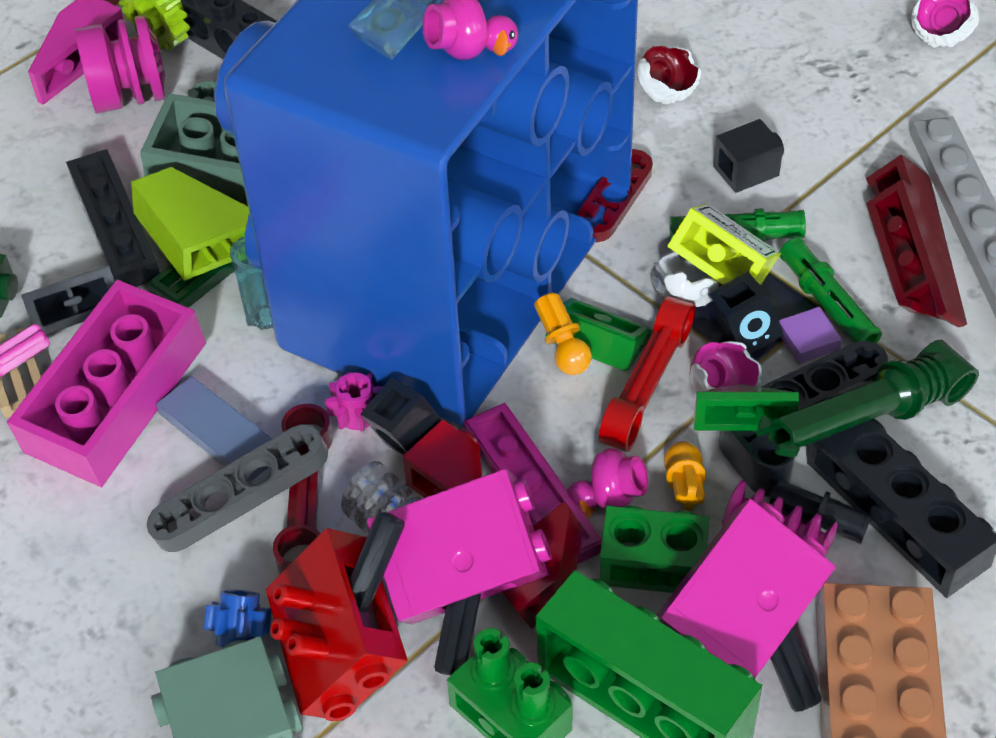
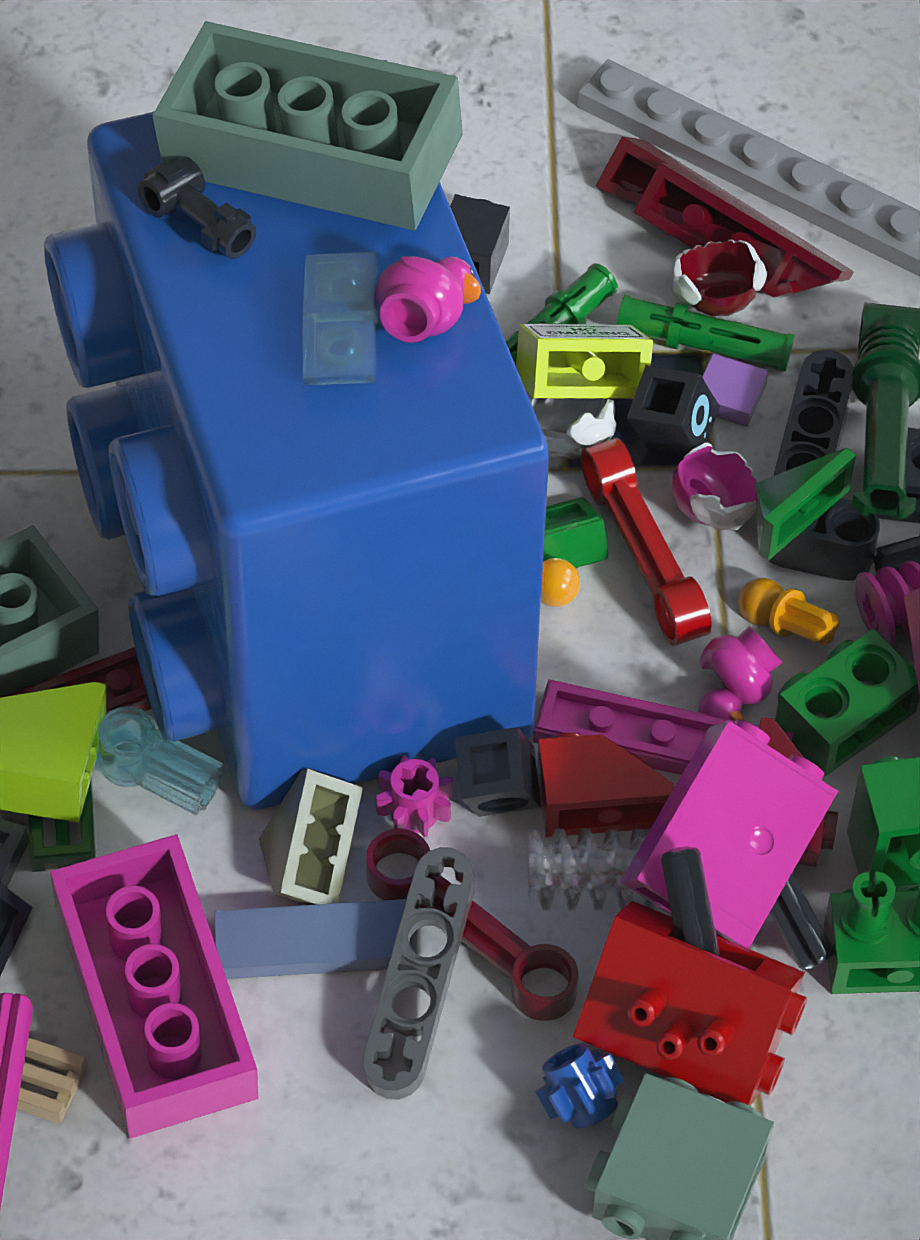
camera: 50 degrees left, 5 degrees up
(278, 381) = (311, 838): none -> olive slope
(866, 265) = (718, 277): none -> dark red hair

